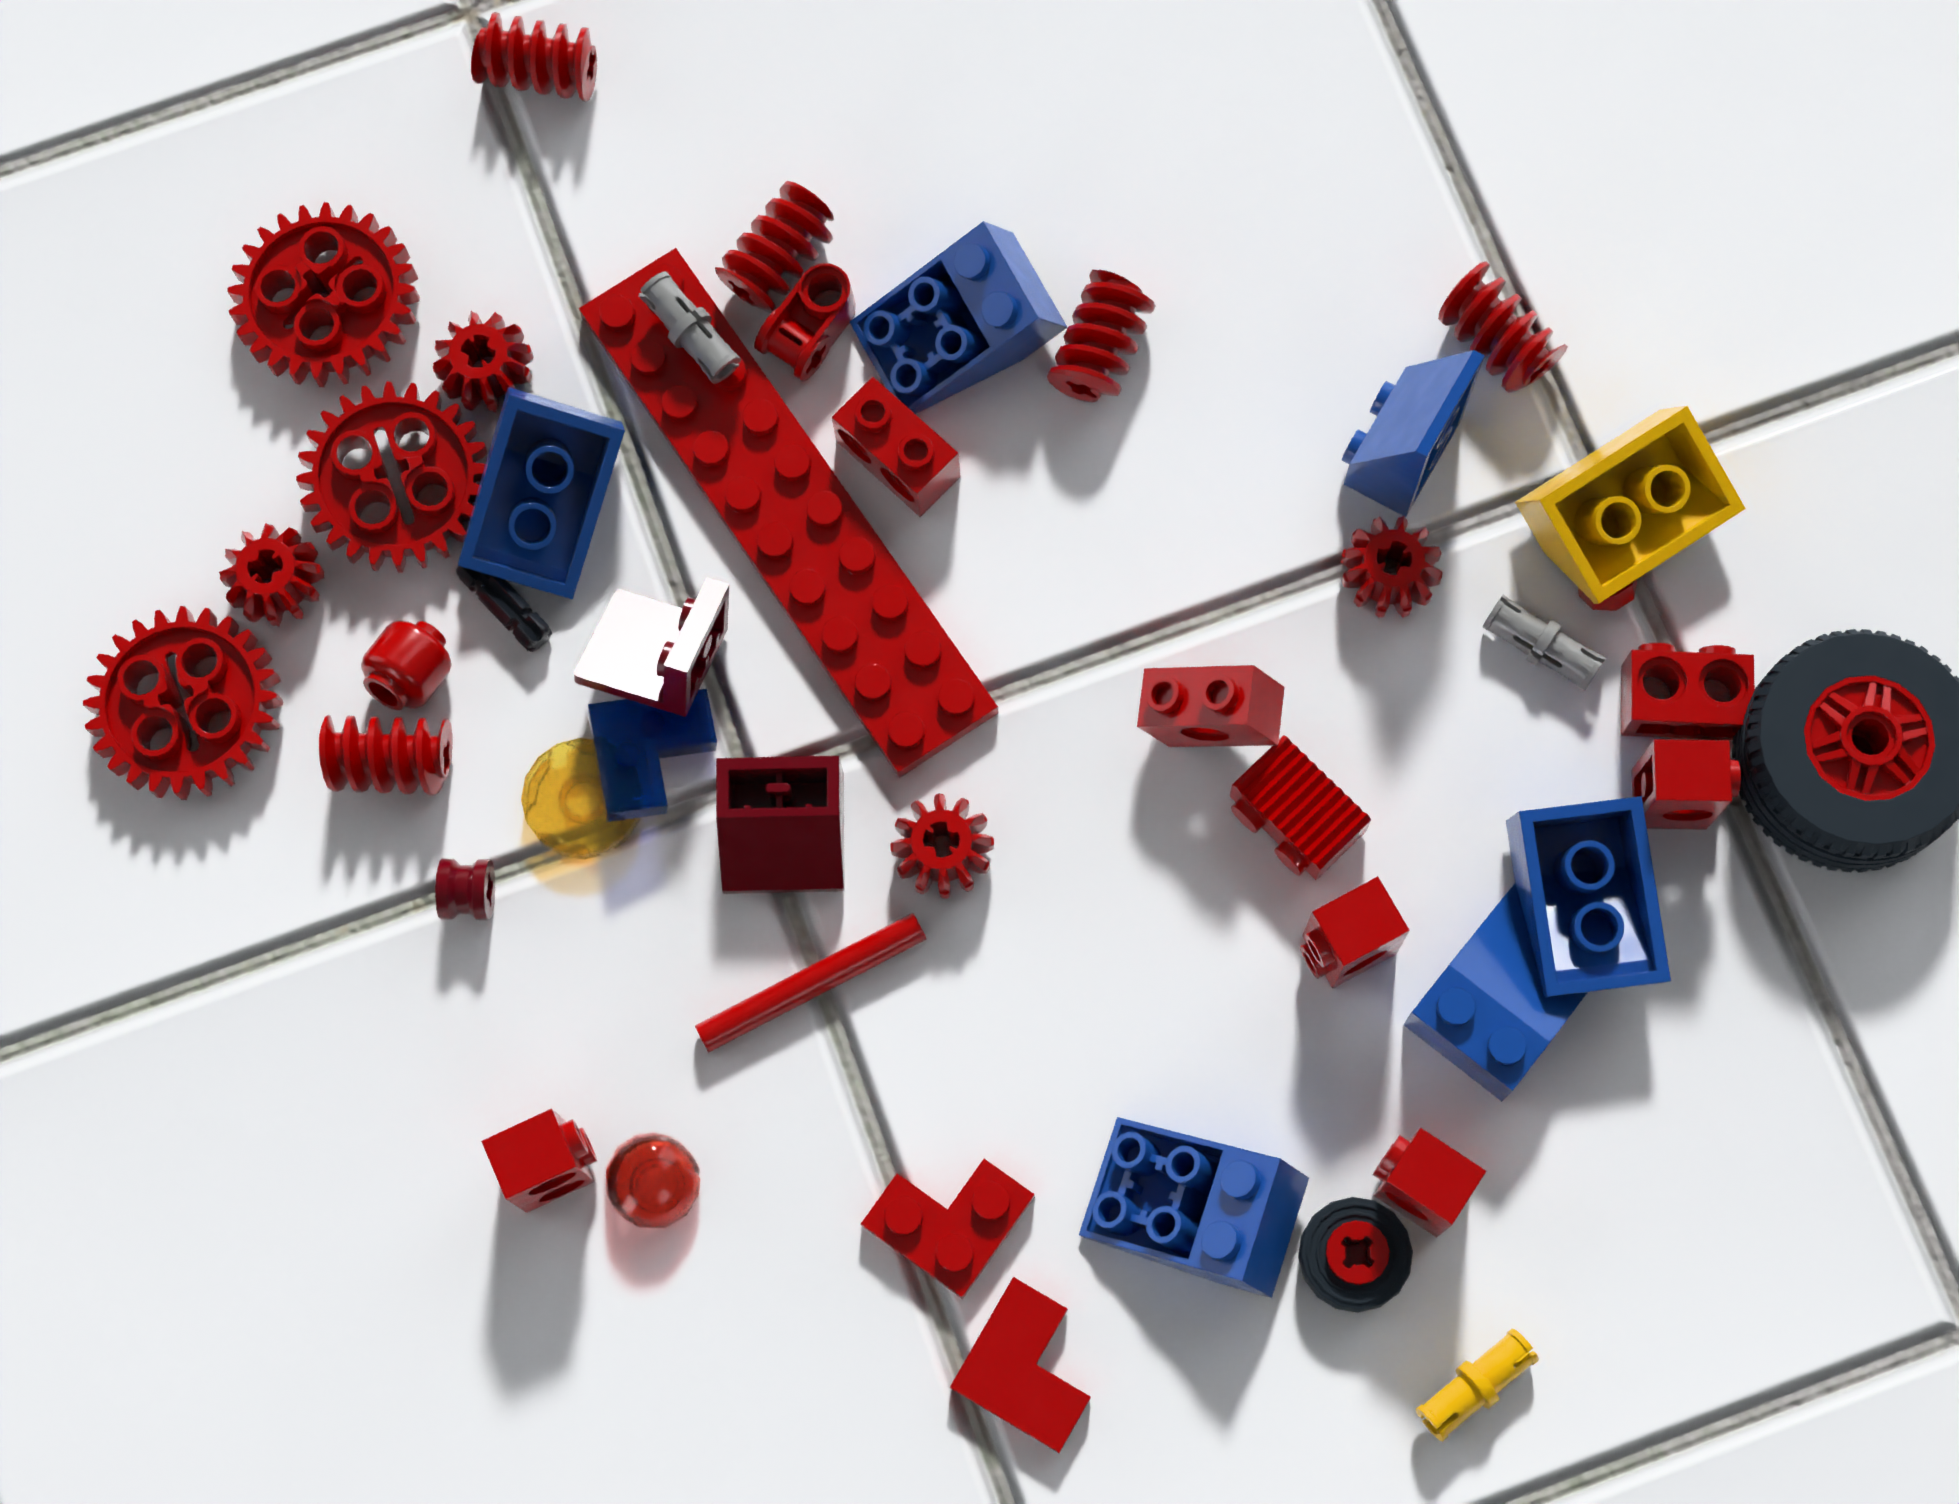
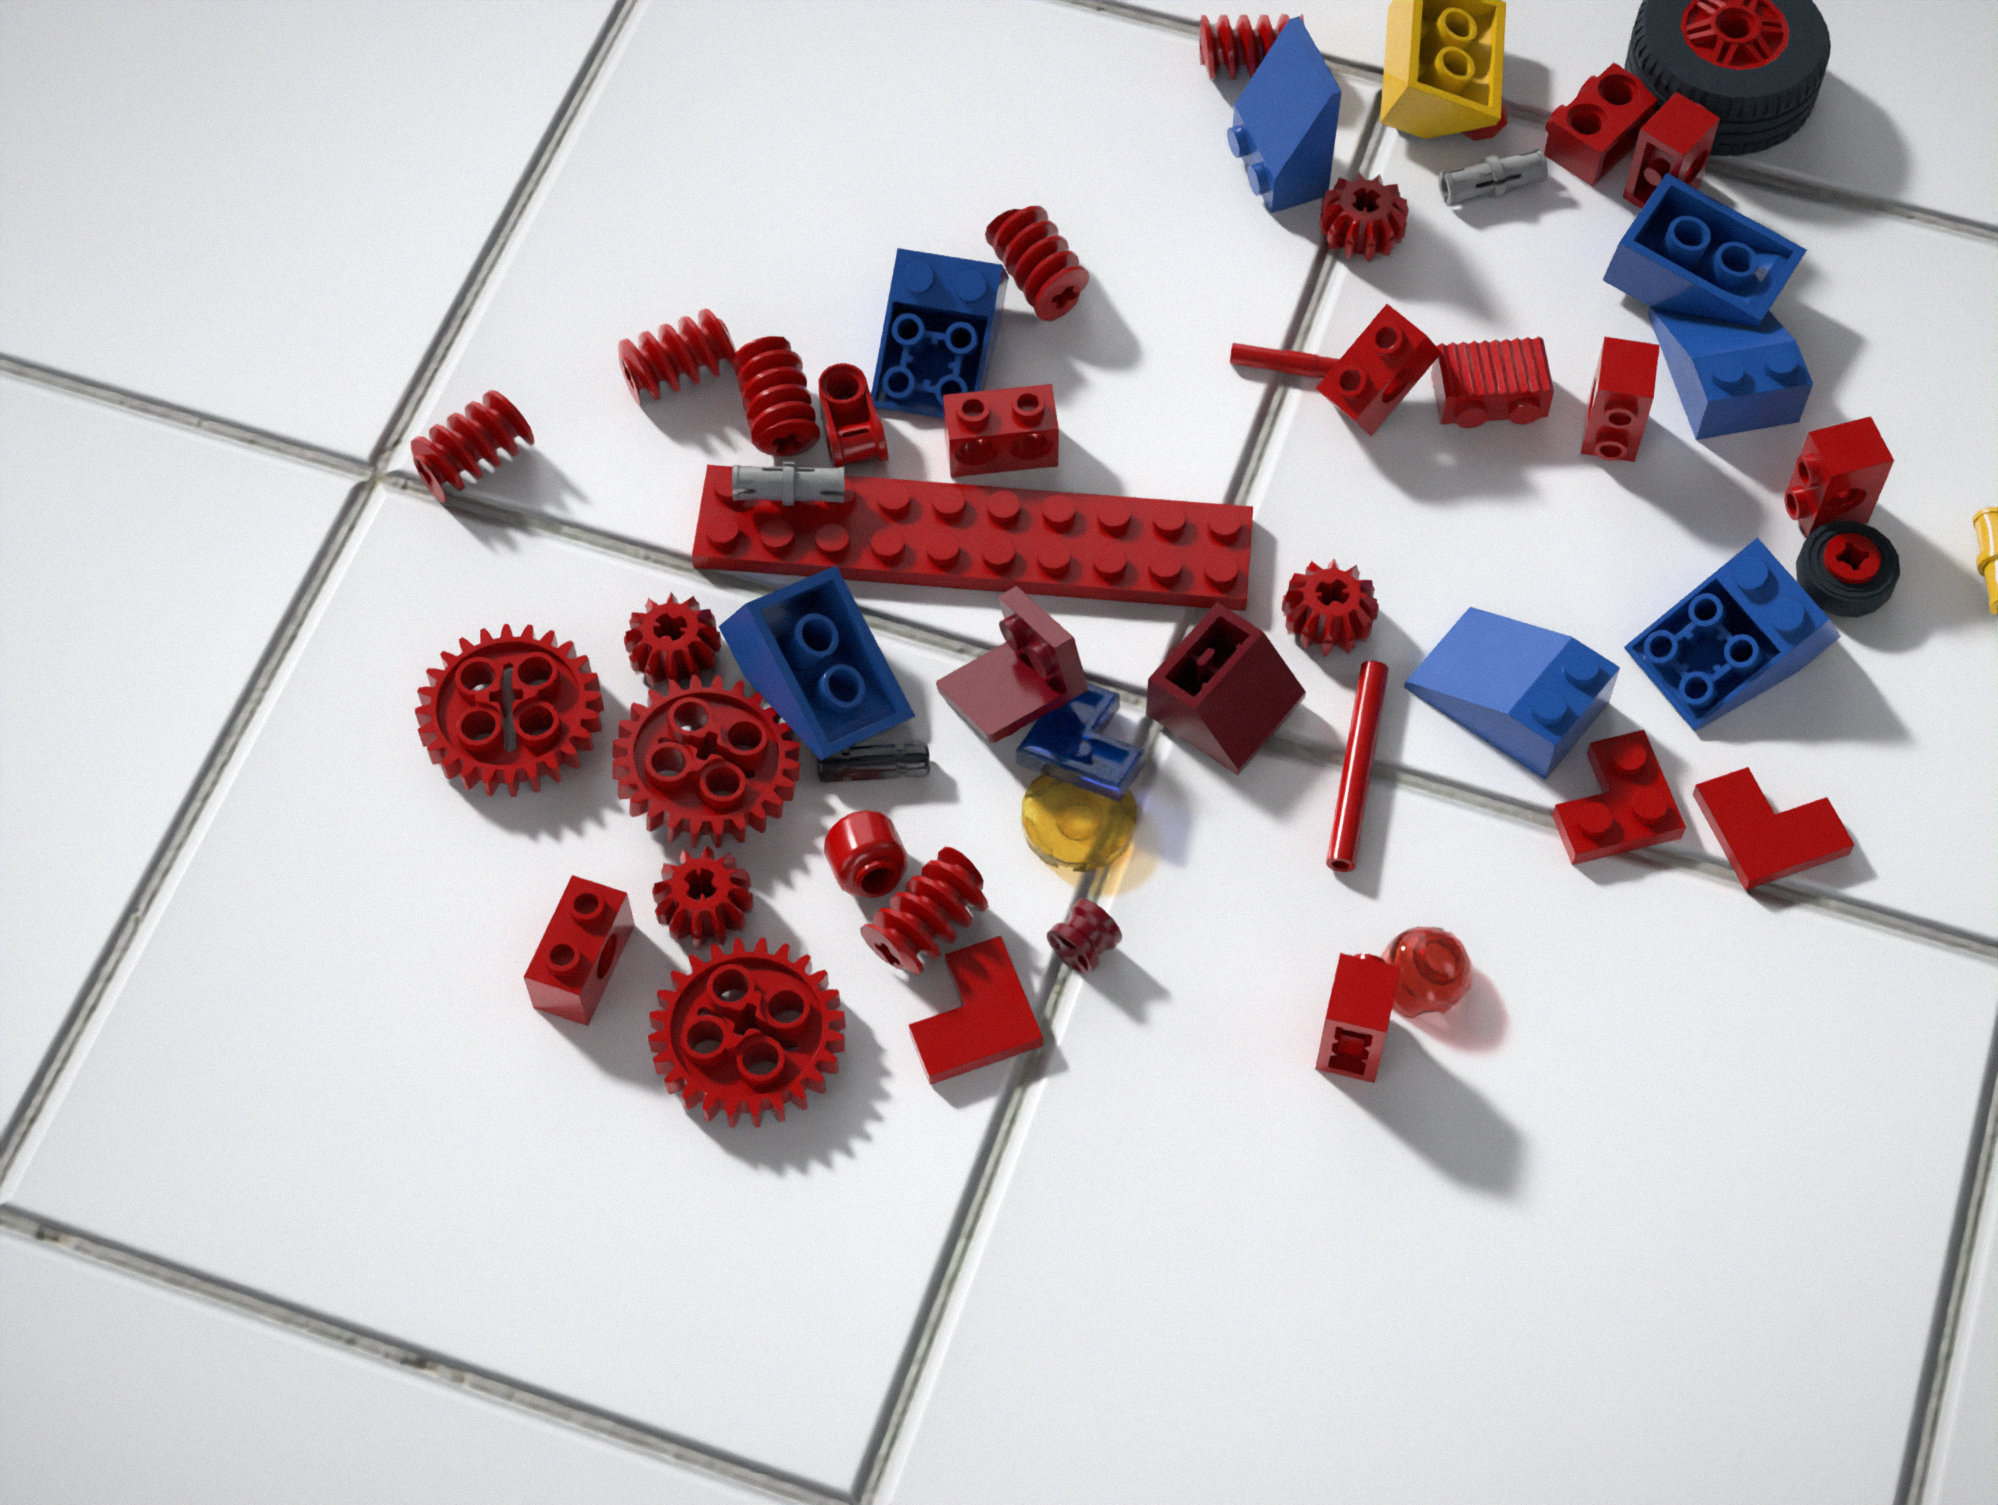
camera: 55 degrees left, 15 degrees down
(151, 524) = (579, 950): none -> red brick
(342, 877) = (989, 1024): none -> red tile
(755, 140) = (675, 354): none -> red piece
(989, 1052) = (1516, 686): none -> blue slope
(1181, 616) = (1280, 360): none -> red piece

